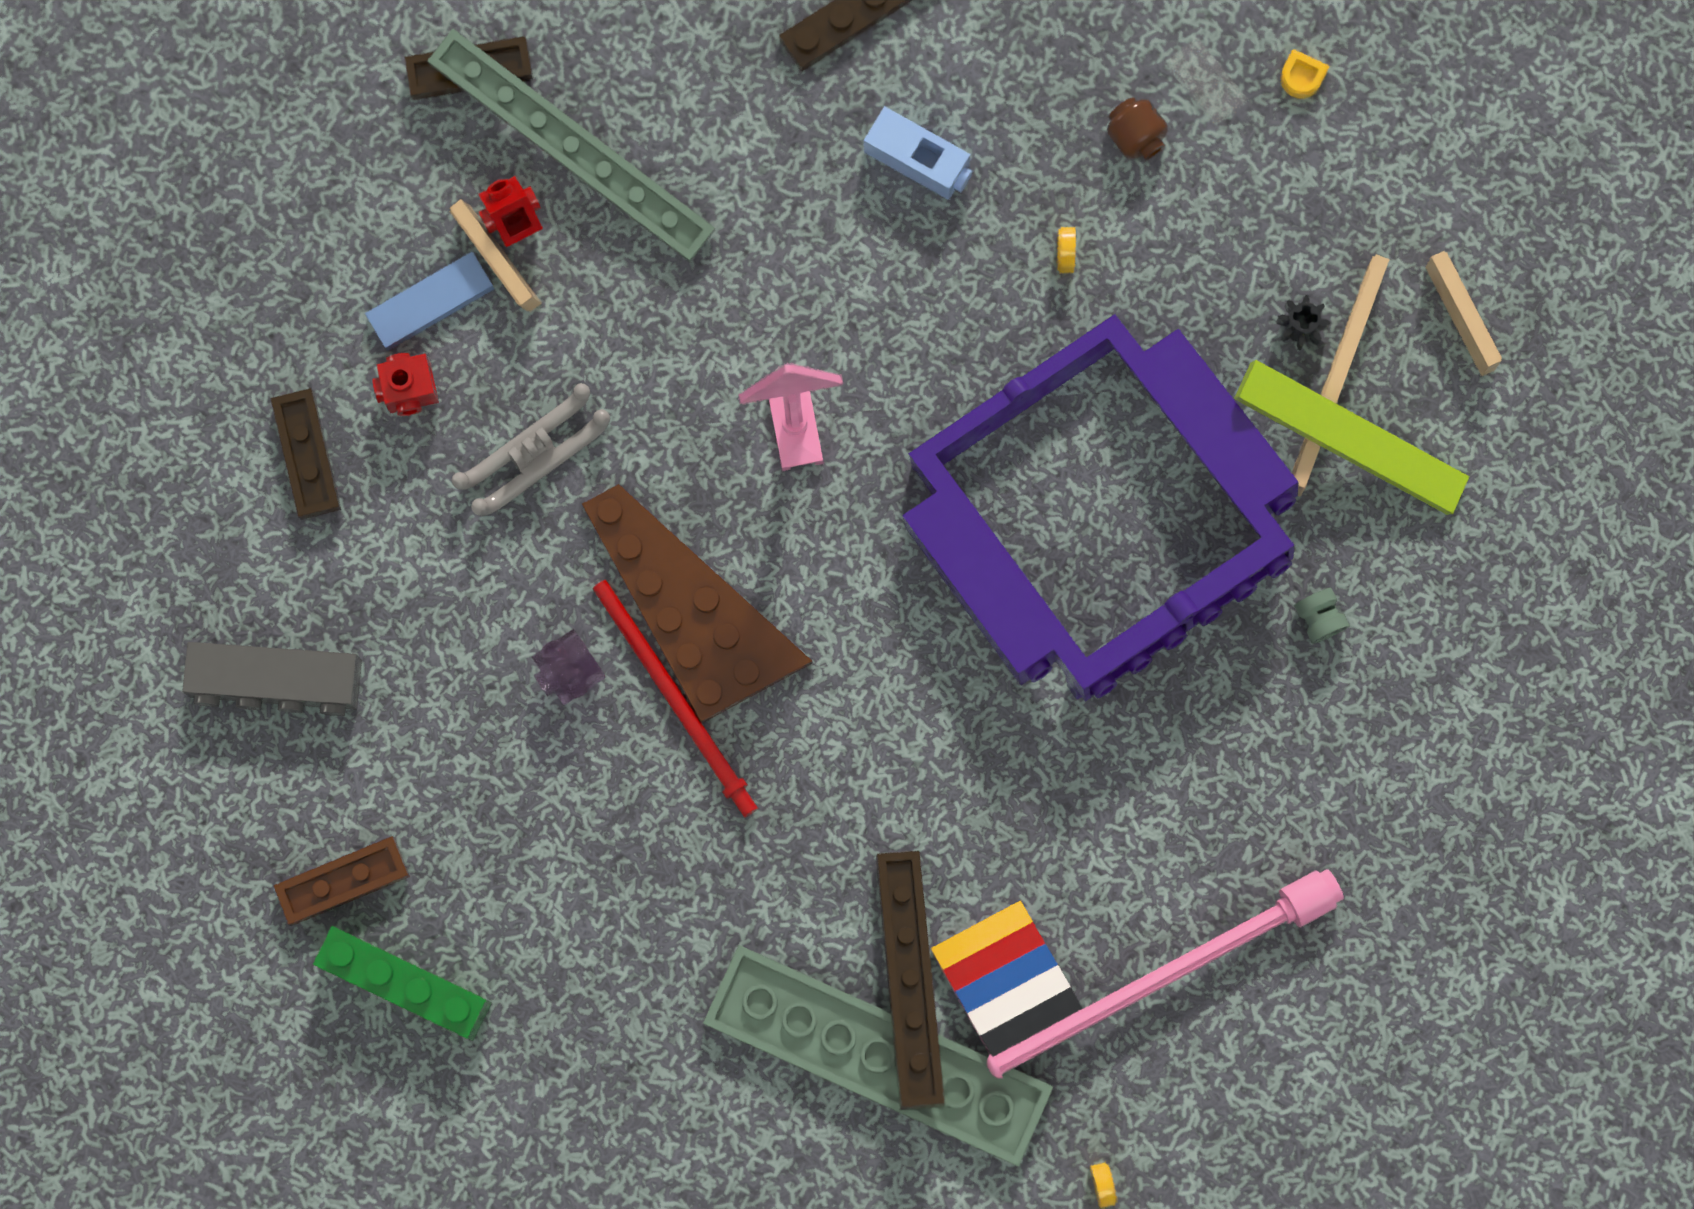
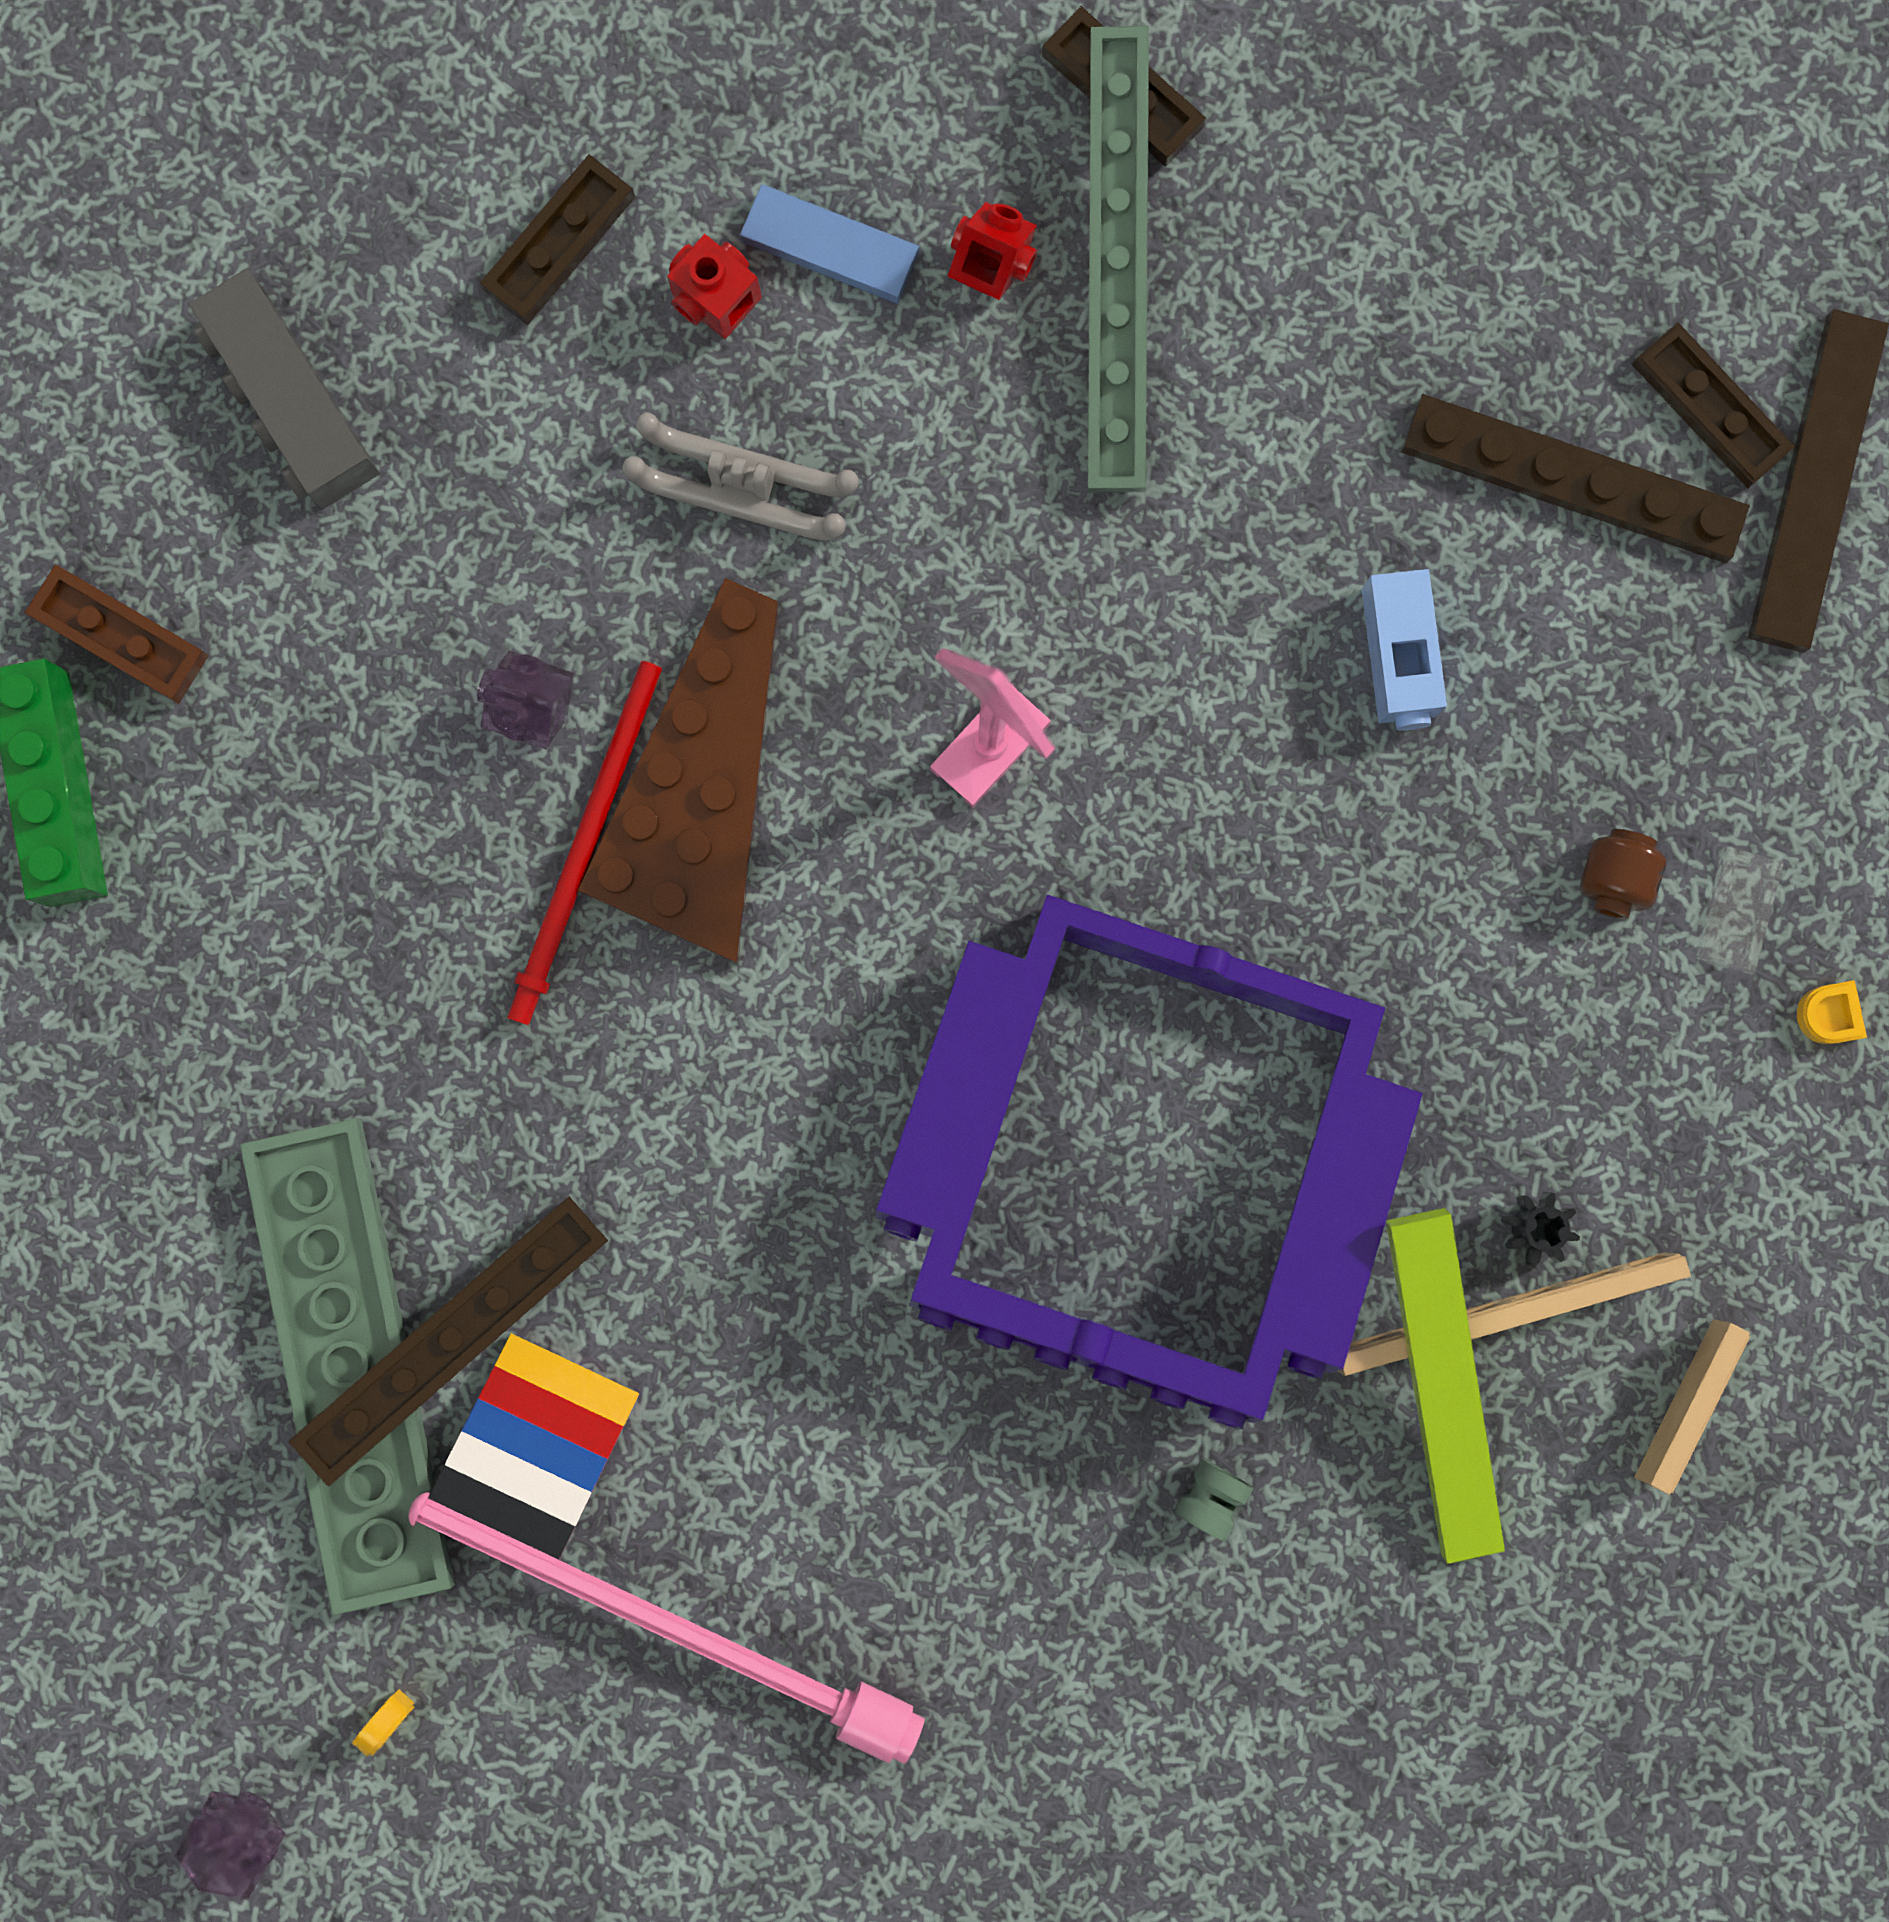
camera: 50 degrees right, 5 degrees up
(494, 256) = (929, 275): tan tile -> none
(1066, 249) = (1420, 897): yellow tile -> none

